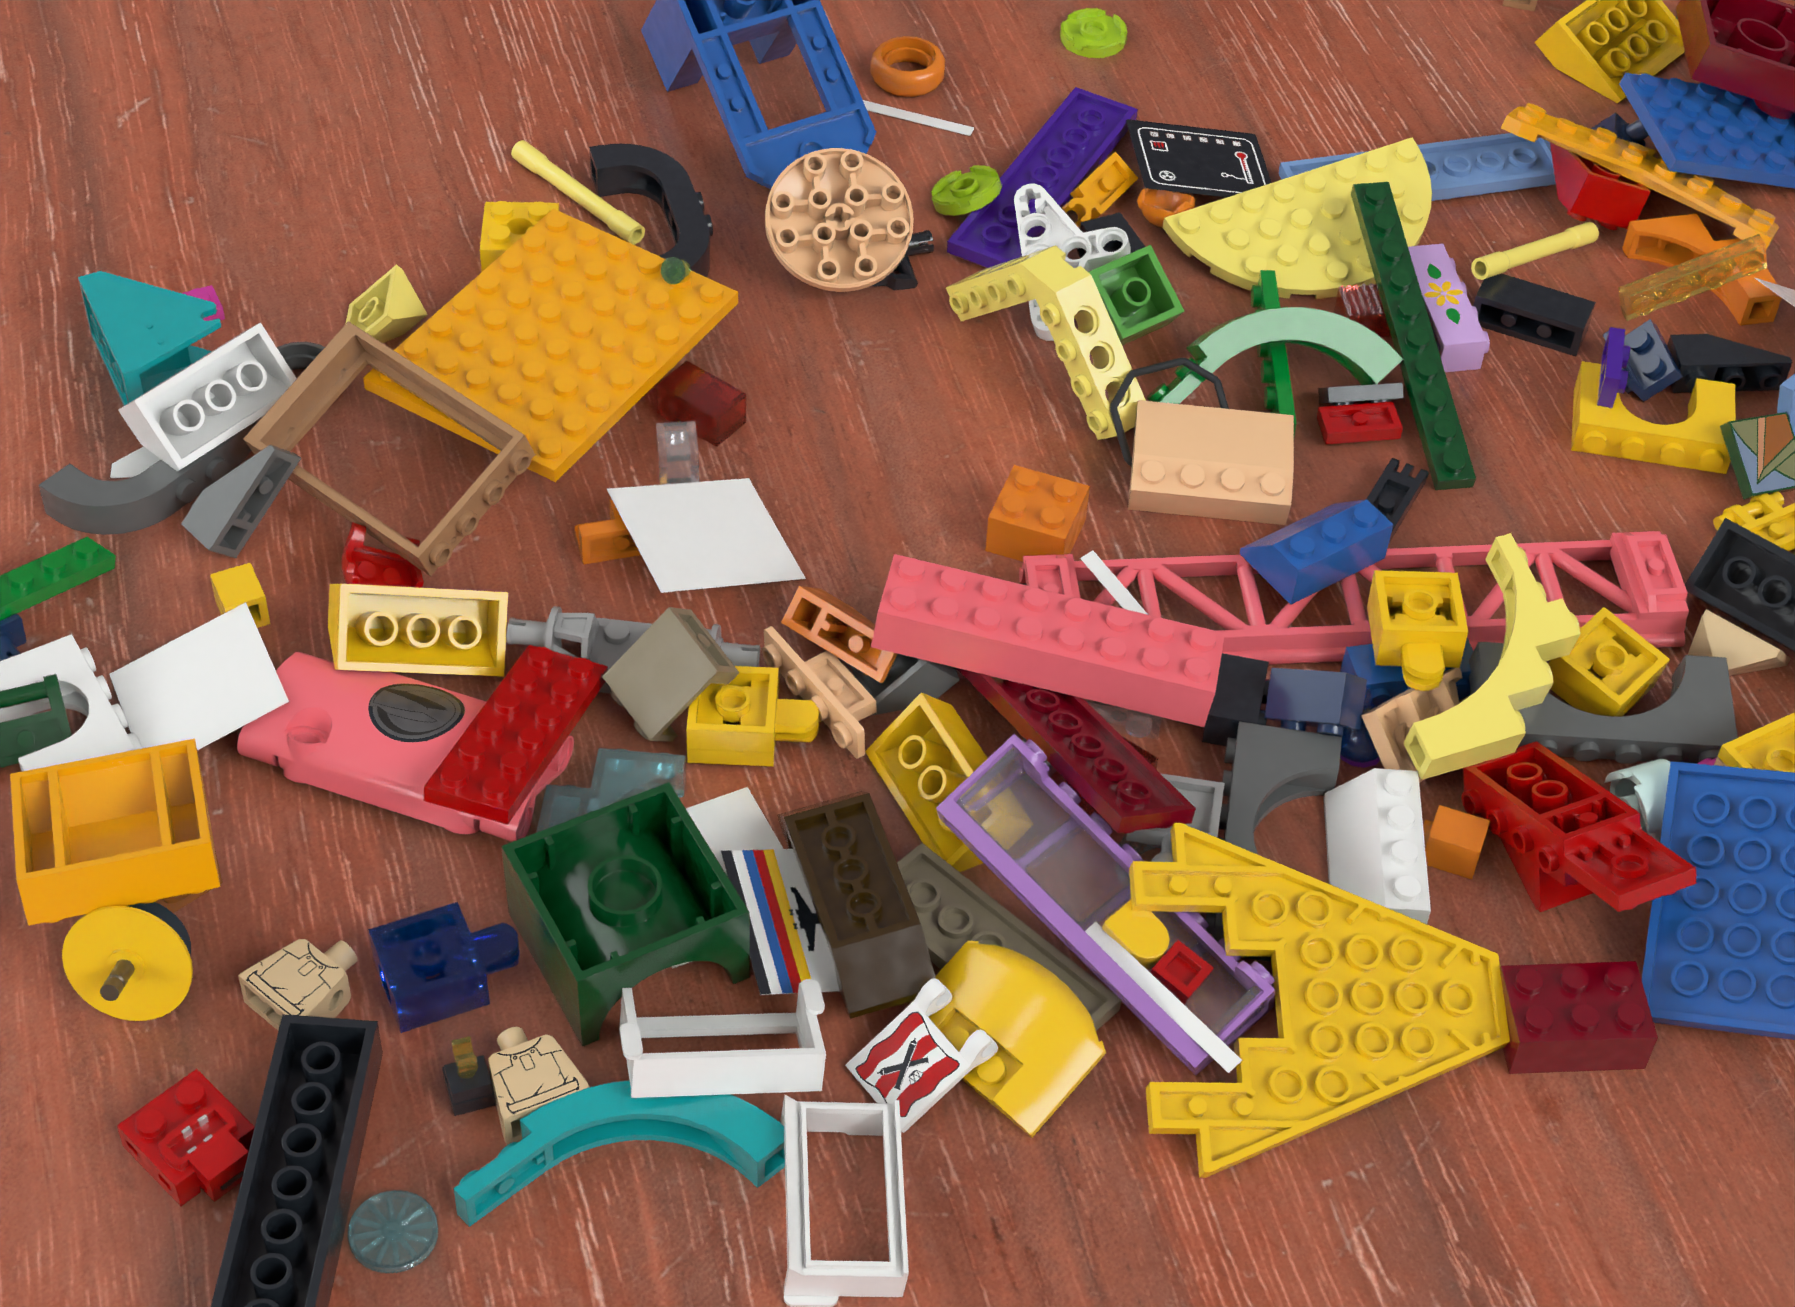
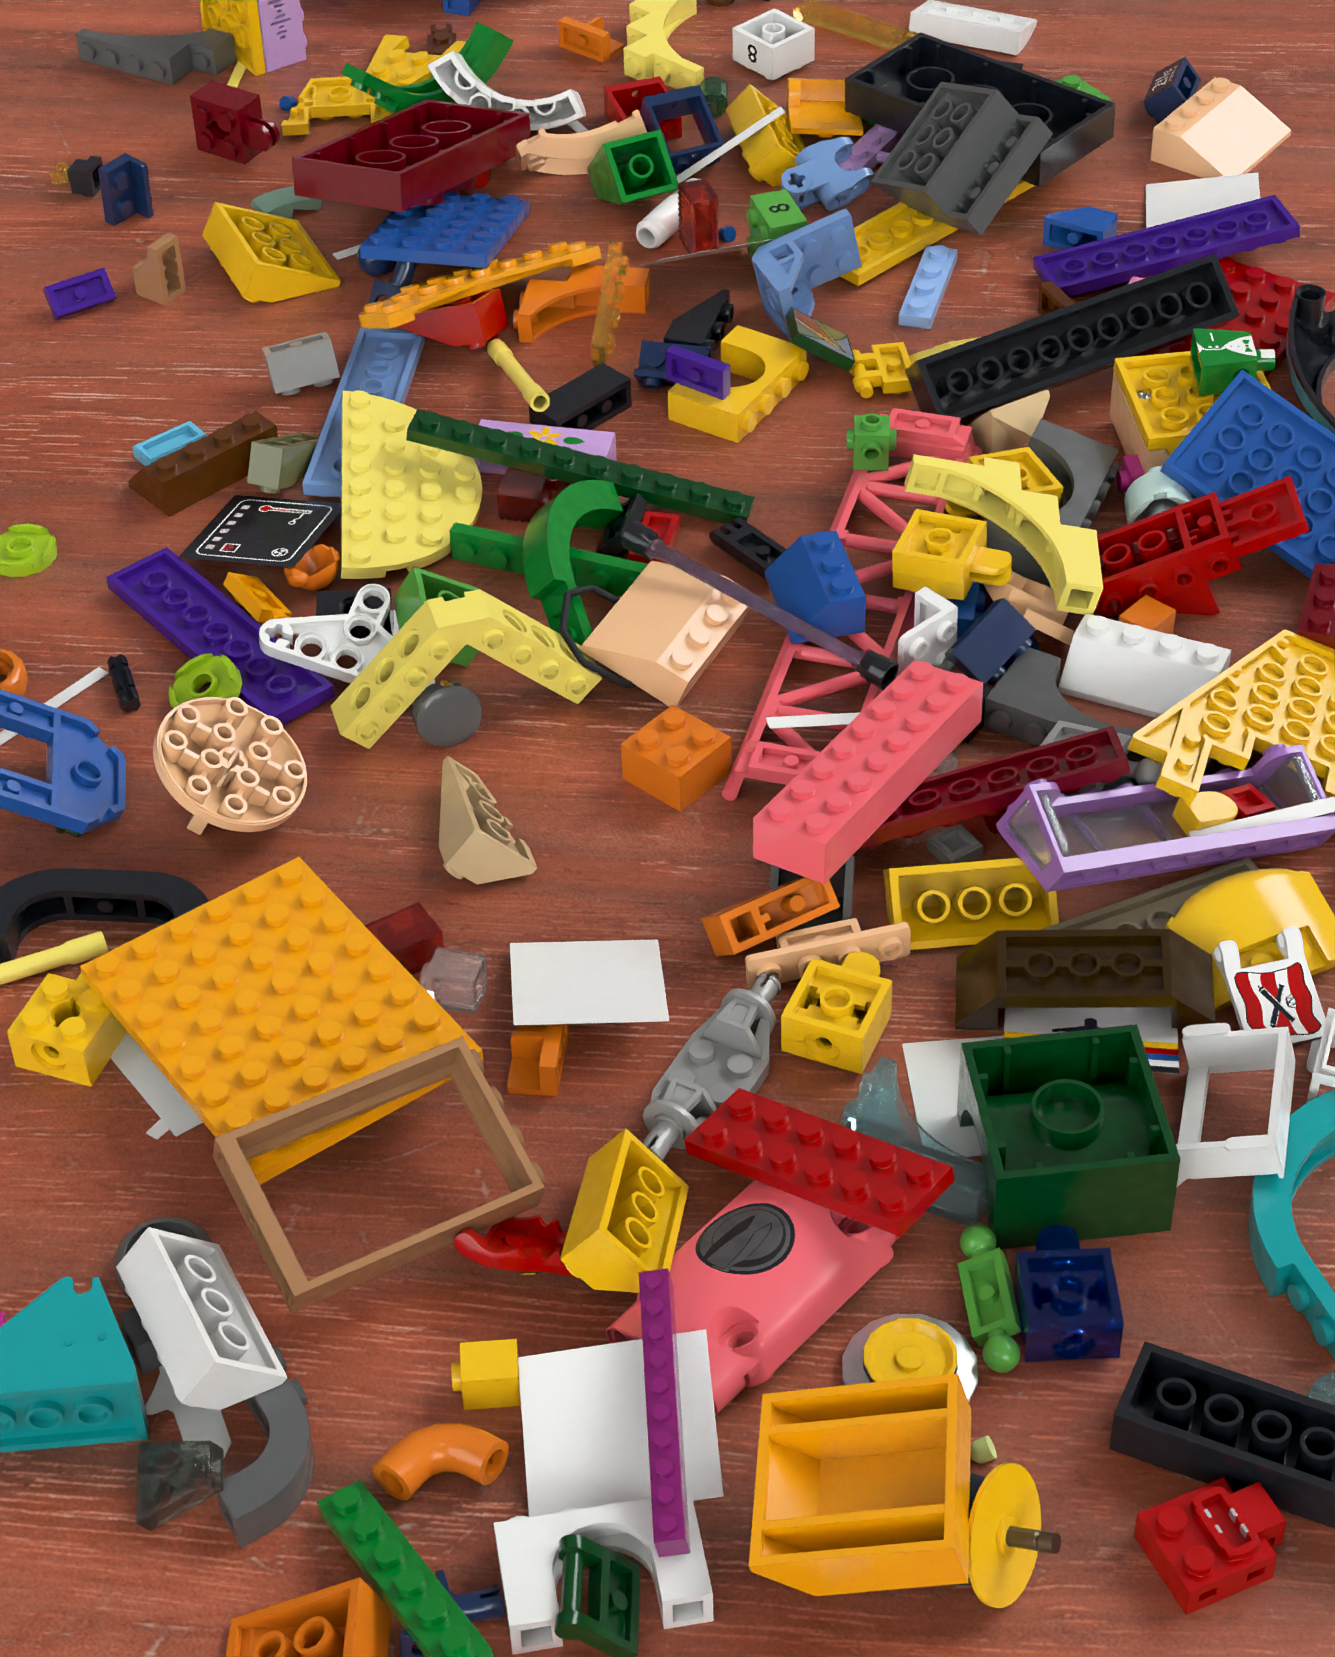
camera: 65 degrees left, 5 degrees down
(73, 447) = (175, 1478): none -> clear smoke wing
(151, 587) = (440, 1450): none -> orange cylinder
(191, 696) = (664, 1414): none -> magenta piece
(236, 503) = (368, 1338): dark grey slope -> none
(262, 951) = (983, 1450): none -> yellowish green piece
(299, 982) = (1053, 1419): tan torso -> none
(340, 881) = (909, 1348): none -> yellow piece
(387, 307) = (111, 1169): light yellow slope -> none
(467, 1079) = (1201, 1311): black piece -> none
(489, 892) = (989, 1298): none -> bright green plate
(528, 1077) = (1221, 1263): tan torso -> none
(667, 672) = (792, 1036): dark tan panel -> none
(674, 270) = (255, 885): clear green piece -> none
(873, 416) = (474, 833): none -> tan wedge
(954, 145) = (123, 683): none -> black axle
(1009, 344) = (447, 713): none -> dark grey piece
(1274, 99) = (202, 465): none -> reddish brown slope
(1288, 392) = (872, 666): none -> clear purple hose
(1293, 72) = (167, 443): none -> medium azure tile
(1296, 649) = (932, 632): none -> white bracket
(1299, 135) = (280, 460): none -> olive slope
(1452, 105) = (301, 363): none -> light grey brick
(1588, 528) = (871, 442): none -> bright green brick

